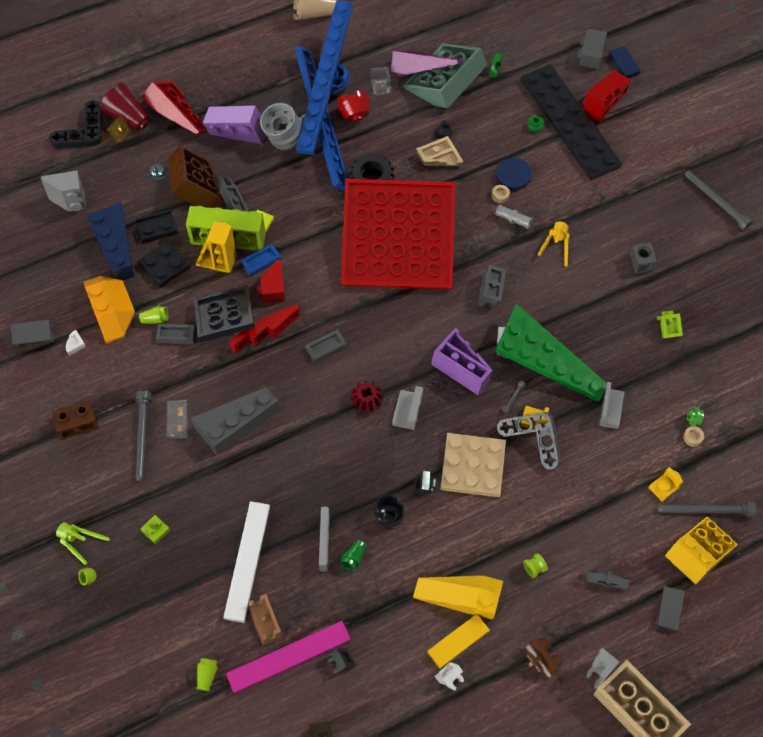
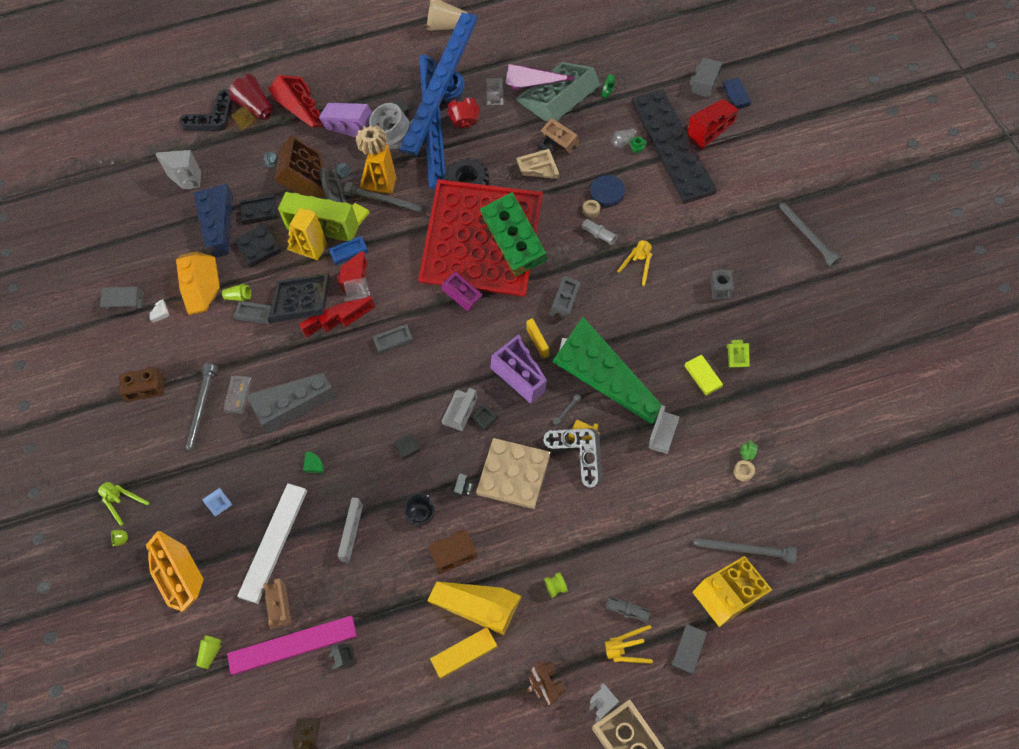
camera: 15 degrees right, 0 degrees up
(154, 602) = (173, 571): none -> light orange wedge
(155, 529) = (192, 499): lime tile -> none
(182, 528) = (217, 502): none -> light blue tile
(237, 176) = (344, 168): none -> clear light blue hinge
(252, 196) = (352, 190): none -> dark grey piece
(271, 479) = (312, 463): none -> green tile
(275, 144) = (371, 140): none -> tan gear
(278, 174) = (379, 172): none -> light orange wedge
(280, 299) = (356, 289): none -> clear panel
(352, 557) = (375, 551): green cone -> none
(362, 451) = (407, 446): none -> pearl dark grey tile
(366, 396) = (421, 392): dark red gear -> none
(387, 290) = (461, 291): none -> magenta slope
(430, 546) = (452, 551): none -> reddish brown brick
(434, 413) = (484, 417): none -> pearl dark grey tile
(436, 217) = (510, 245): none -> green brick
(449, 674) = (447, 686): white tile -> none
(457, 120) = (560, 134): none -> medium nougat hinge
(473, 330) = (537, 338): none -> yellow tile
(519, 118) = (623, 137): none -> clear cone
(602, 616) = (615, 647): none -> yellow plant
(640, 348) = (703, 375): none -> neon yellow tile
(666, 484) = (707, 517): yellow bracket -> none

